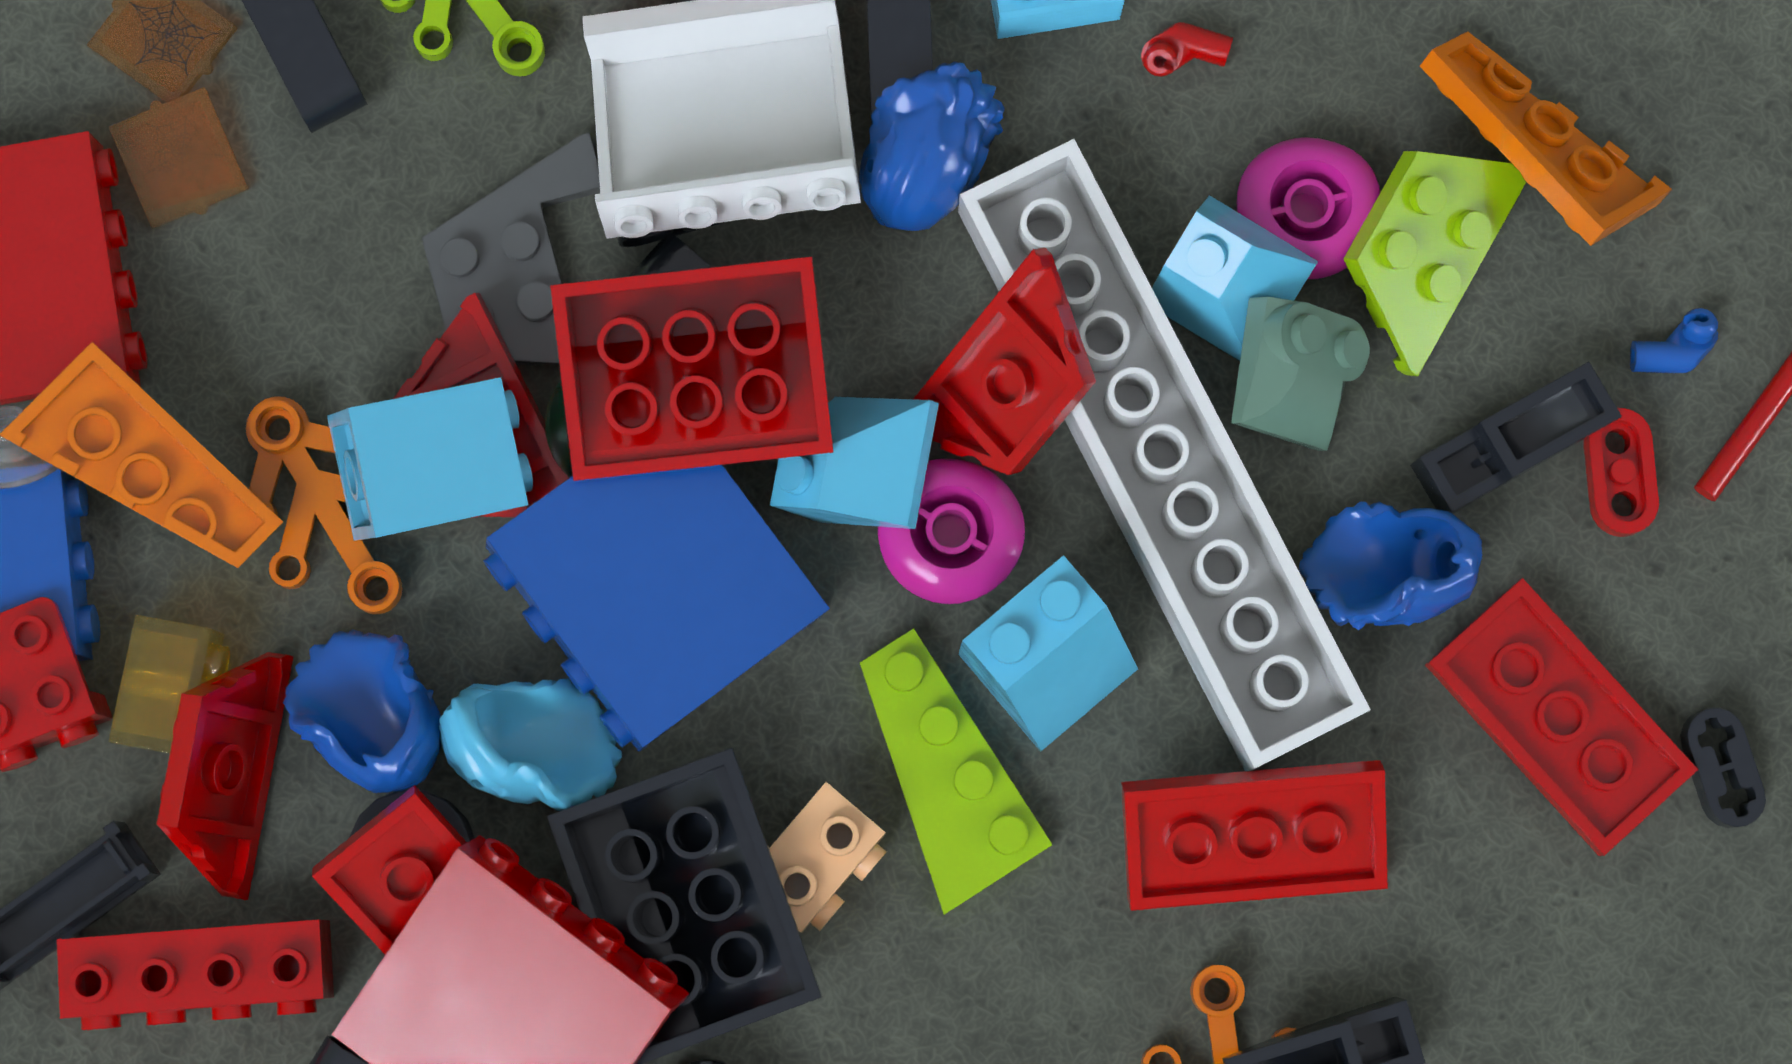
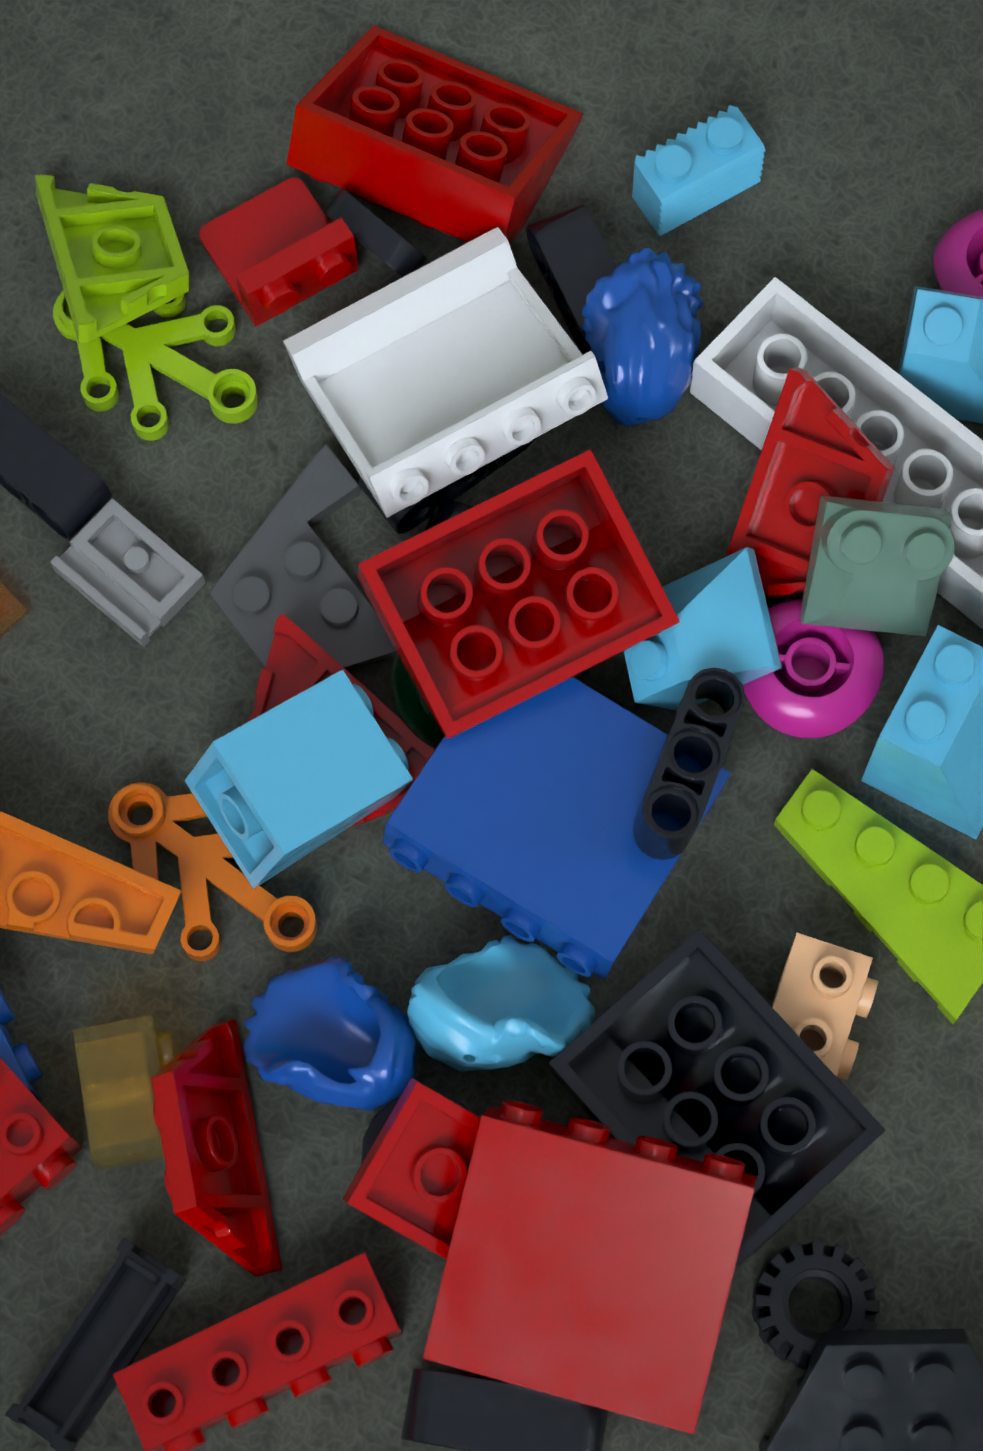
camera: 15 degrees left, 10 degrees down
(353, 188) = (128, 572): none -> light grey plate
(803, 562) = (703, 738): none -> black beam
(1042, 466) = (876, 565): none -> sand green slope
(1181, 44) = (827, 178): red arm -> none

